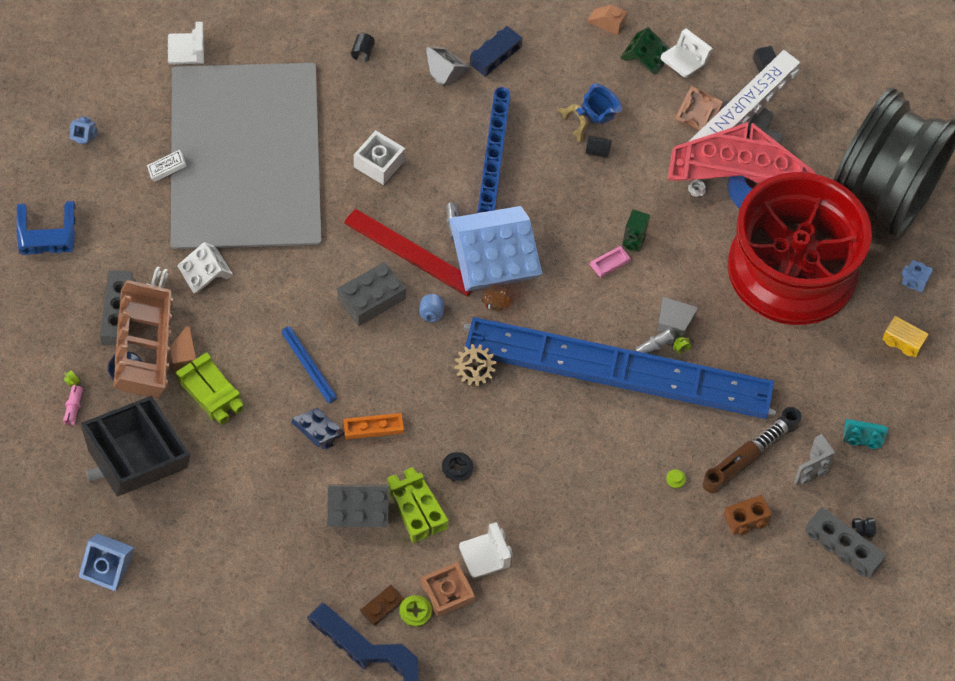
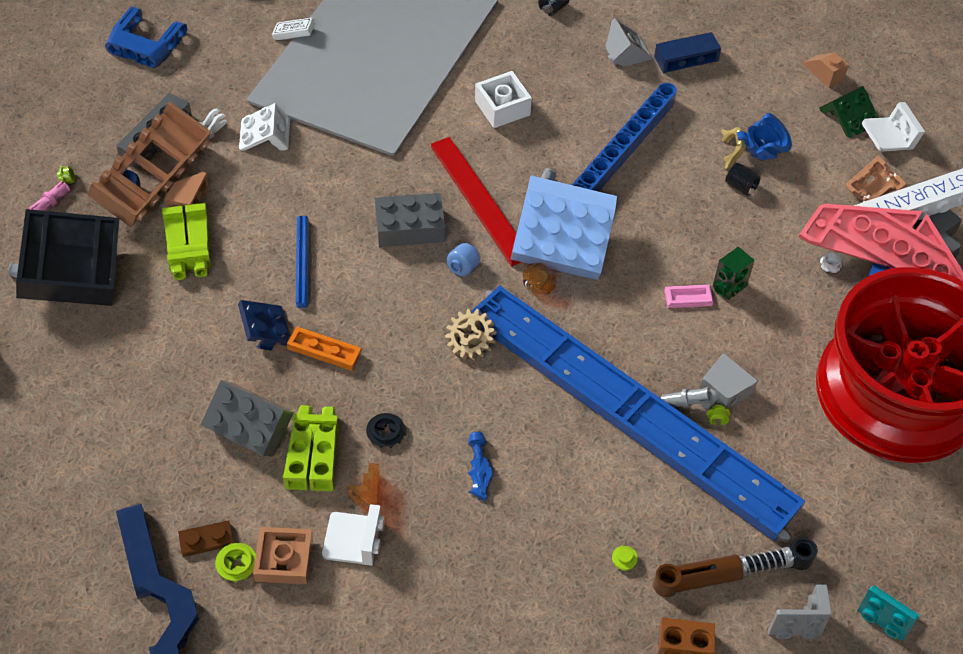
camera: 30 degrees right, 5 degrees down
(477, 518) = (367, 493): none -> clear orange slope
(543, 464) = (480, 472): none -> blue piece

